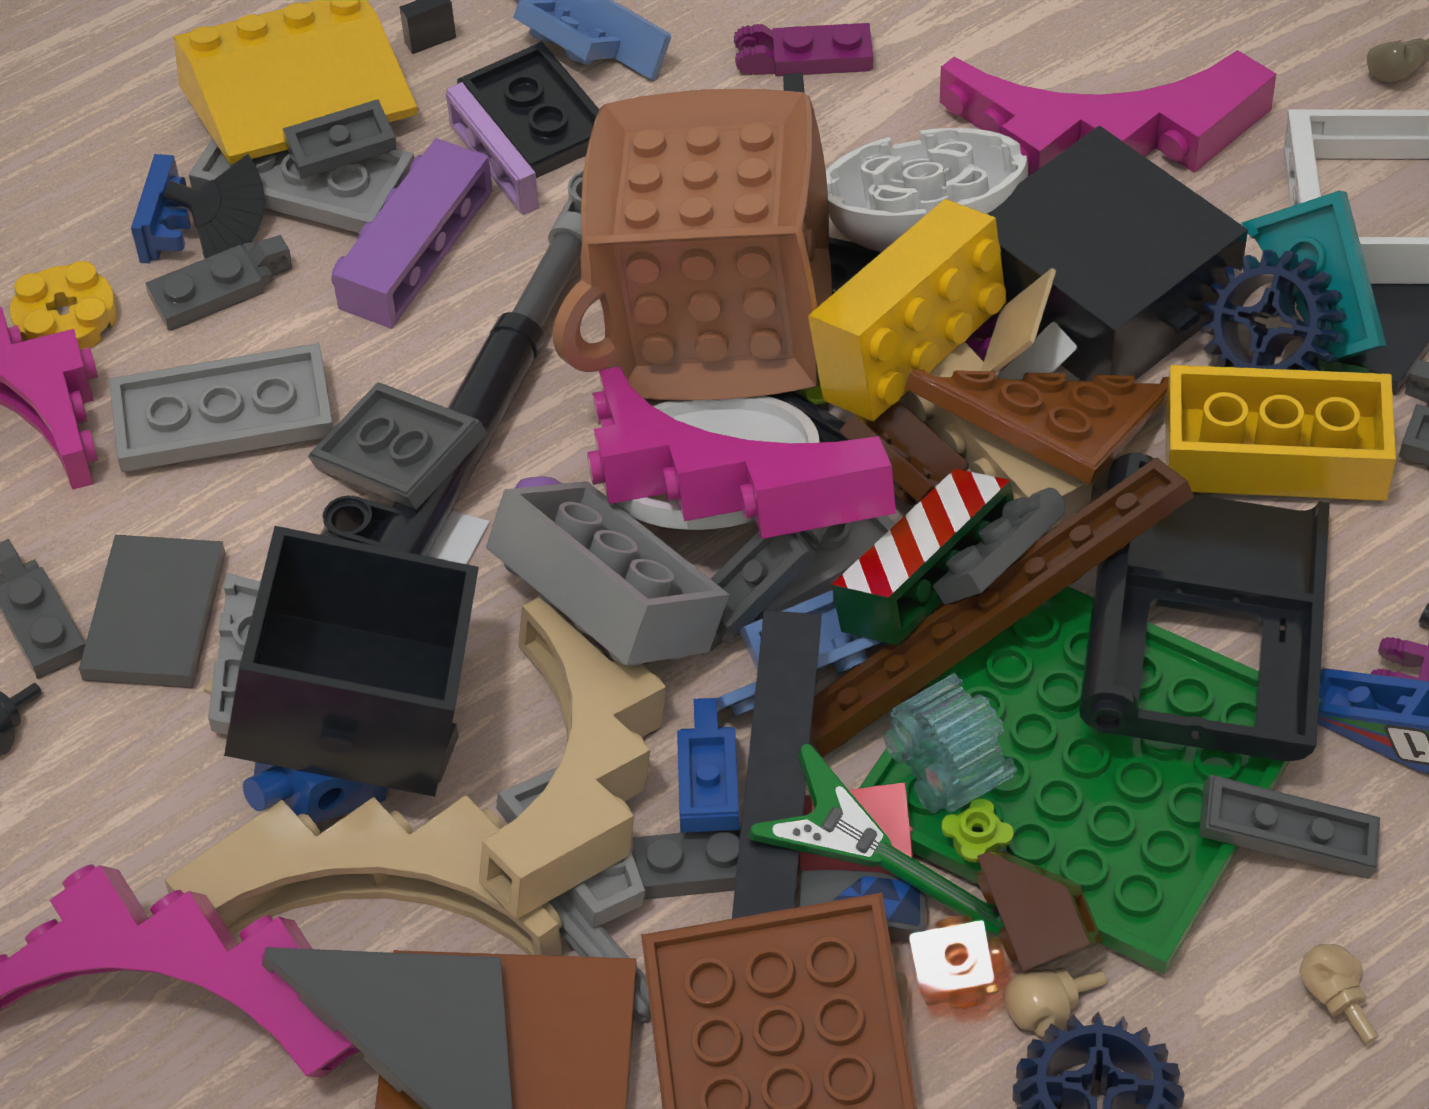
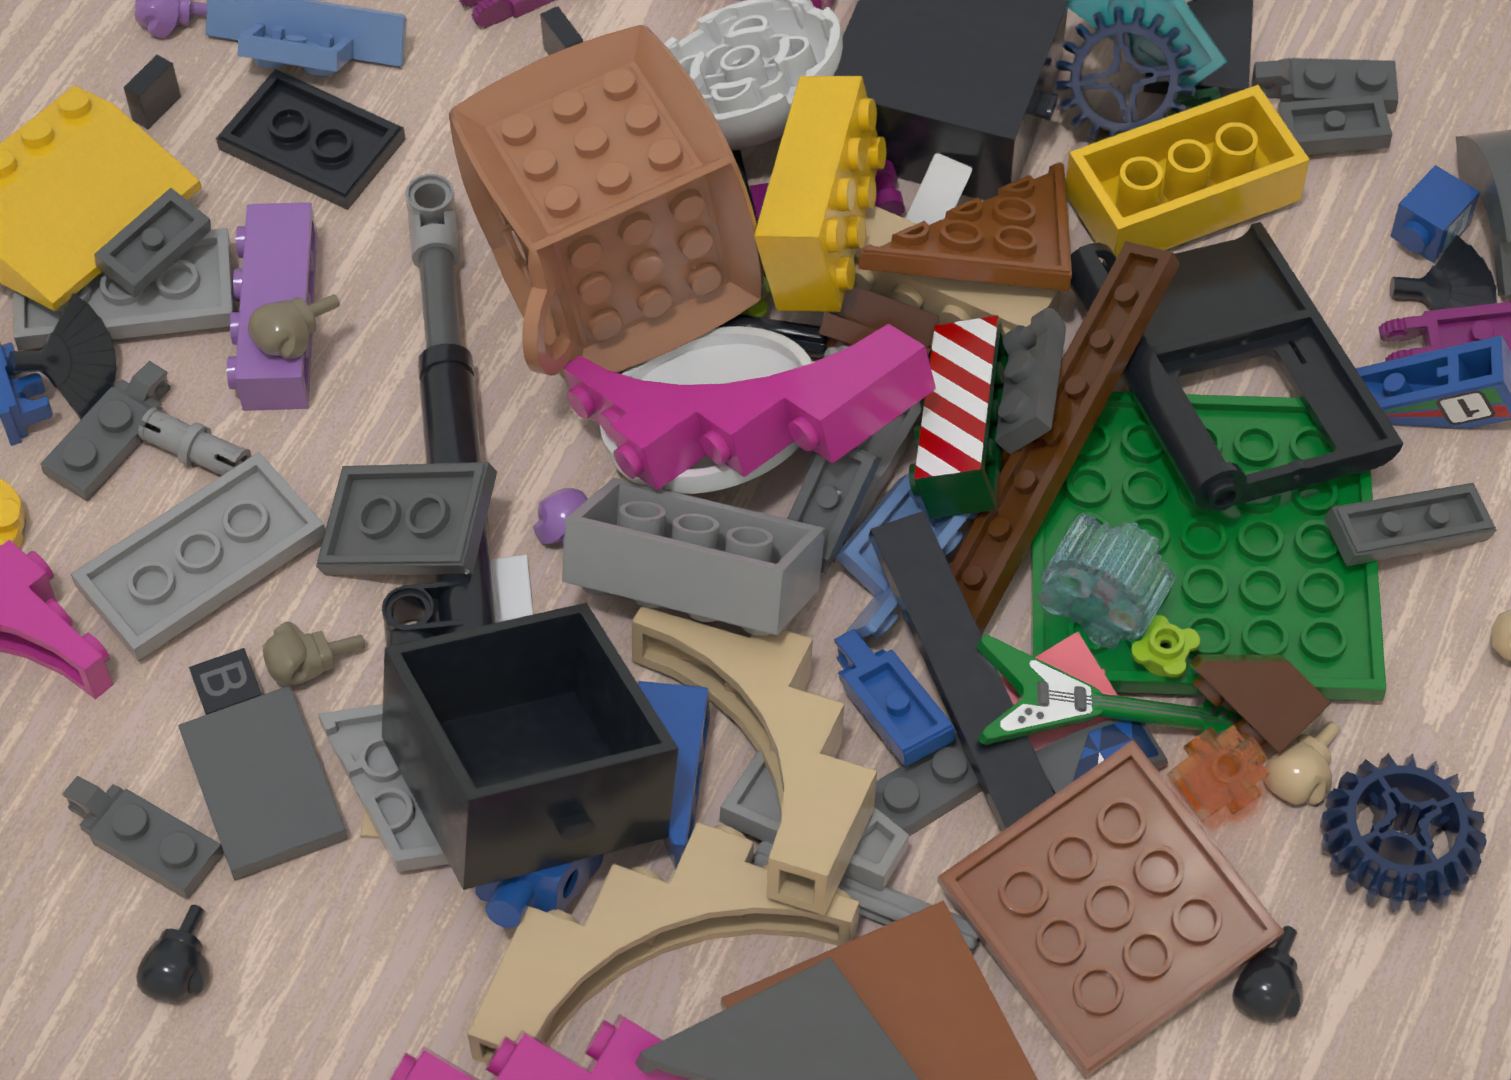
camera: 30 degrees left, 5 degrees up
(177, 516) = (225, 681): none -> black tile
(244, 521) = (300, 657): none -> dark tan piece
(274, 315) = (191, 443): none -> light grey pin
(393, 244) = (285, 325): none -> dark tan piece
(485, 137) = (284, 183): lavender tile -> none
(492, 730) = (687, 718): none -> blue slope
(1018, 324) = (920, 168): tan window -> none

